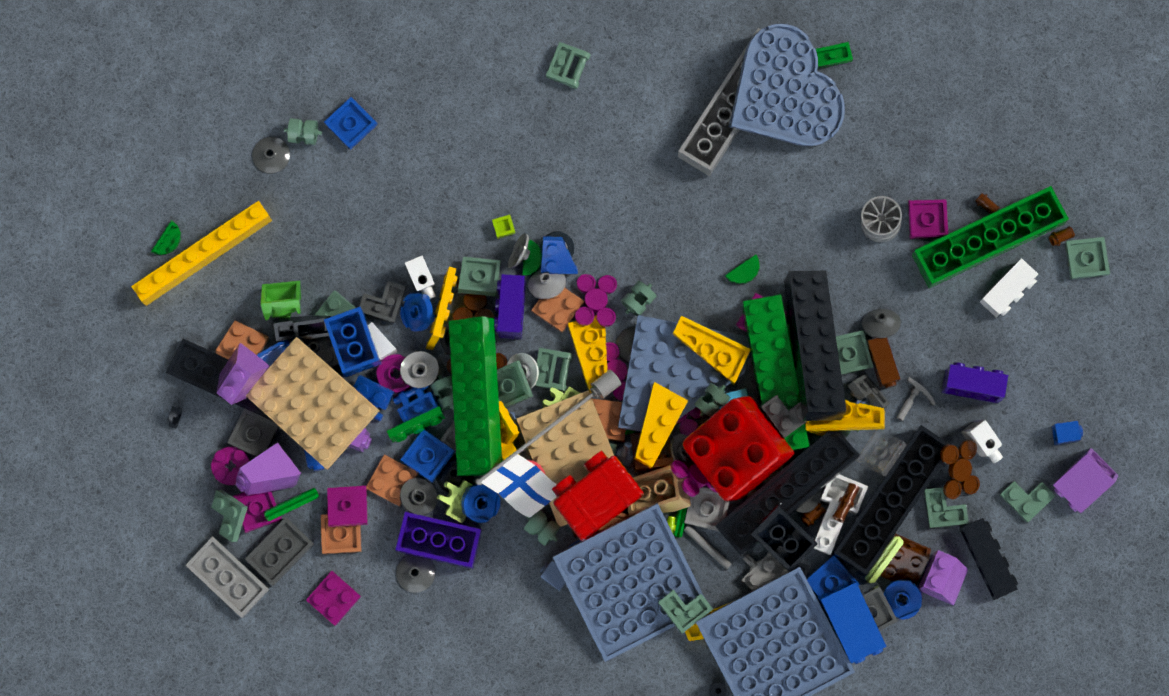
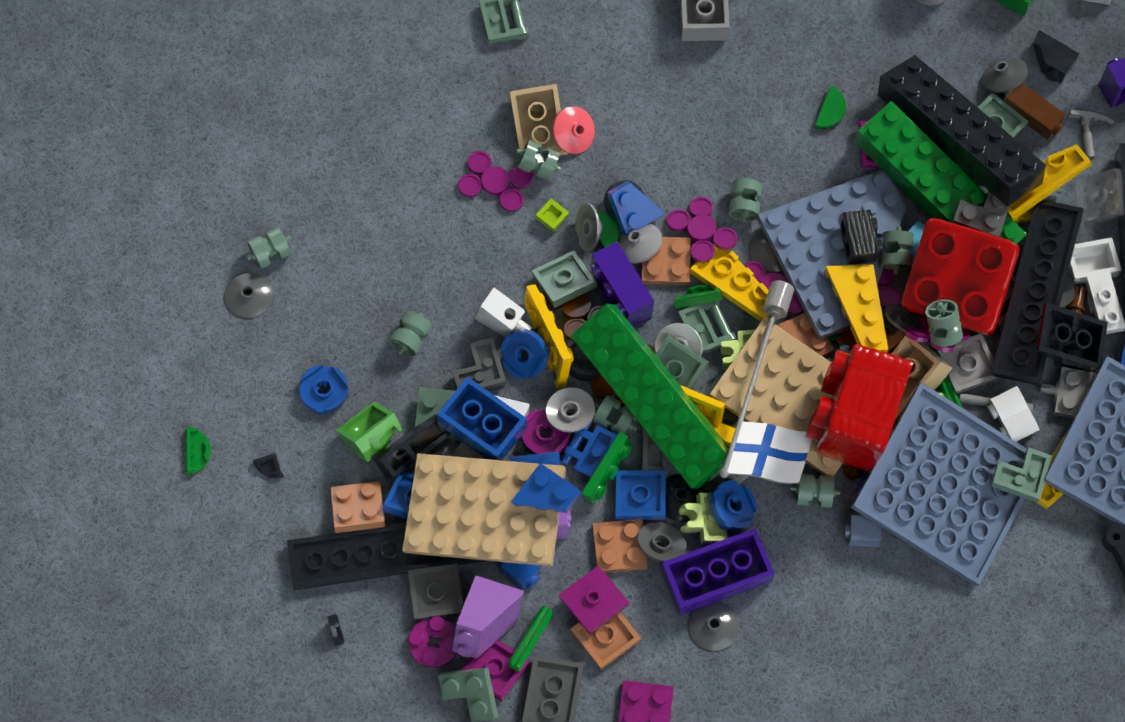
camera: 40 degrees left, 10 degrees down
(201, 253) = (245, 439): yellow brick -> none
(206, 280) = (269, 466): none -> black tile
(240, 374) = (382, 530): medium lavender slope -> none
(267, 243) = (322, 402): none -> blue plate
(350, 123) = (314, 210): blue plate -> none
(353, 419) = (547, 491): none -> blue wing
(356, 248) = (411, 331): none -> sand green wheel
(484, 178) = (494, 181): none -> magenta piece
(518, 182) = (538, 160): none -> sand green wheel
(539, 154) = (534, 115): none -> tan slope
(555, 168) = (565, 130): none -> coral dish
(560, 345) = (698, 295): none -> green tile
(692, 376) = (860, 236): none -> black brick
(696, 475) = (944, 323): none -> sand green wheel
(710, 564) = (1013, 414): none -> white brick
(715, 349) = (879, 195): yellow wing -> none
(846, 502) = (1104, 265): reddish brown pin -> none
(865, 388) = (1040, 147): dark grey plate -> none
(925, 333) = (1054, 57): none -> black slope

